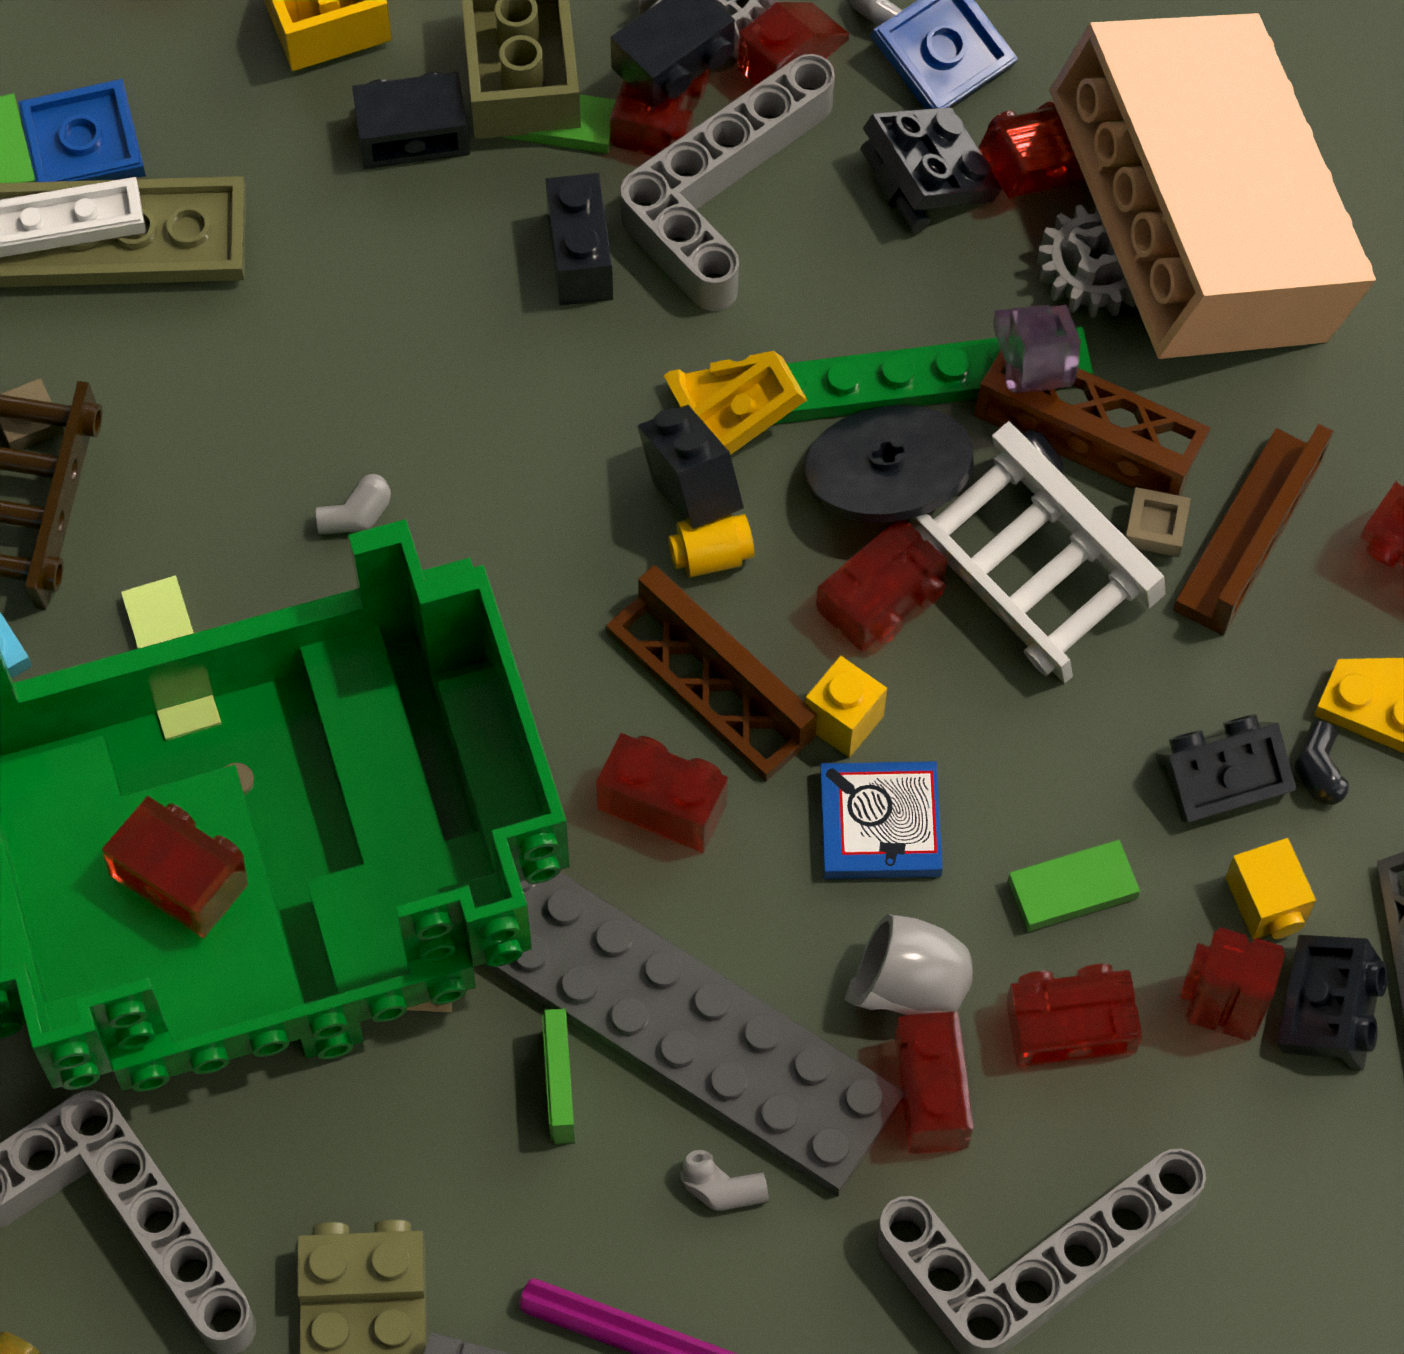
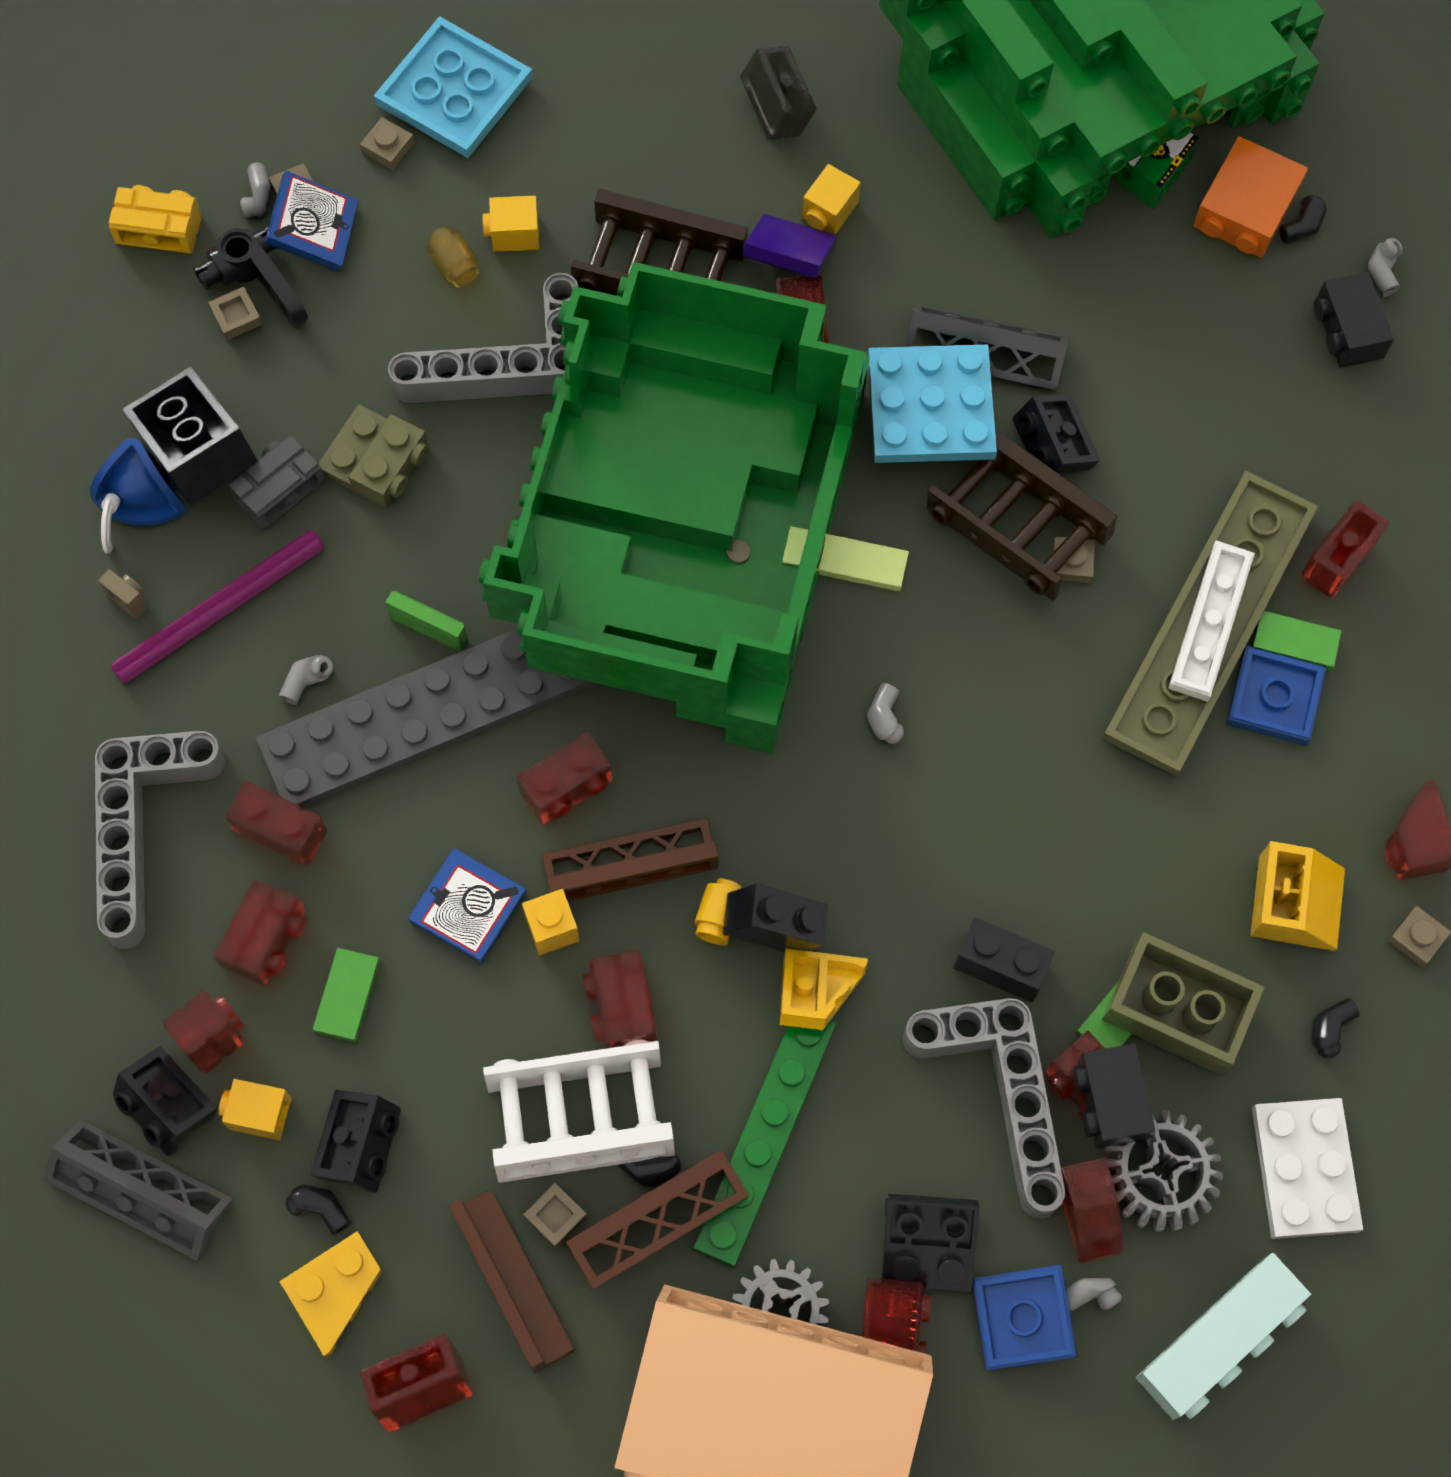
camera: 120 degrees right, 5 degrees up
(176, 865) = (674, 456): clear red brick -> none
(411, 119) = (1171, 902): black brick -> none
(889, 463) = (676, 1070): black piece -> none
(911, 969) = (349, 849): light grey piece -> none
(1038, 347) = (716, 1189): brick -> none

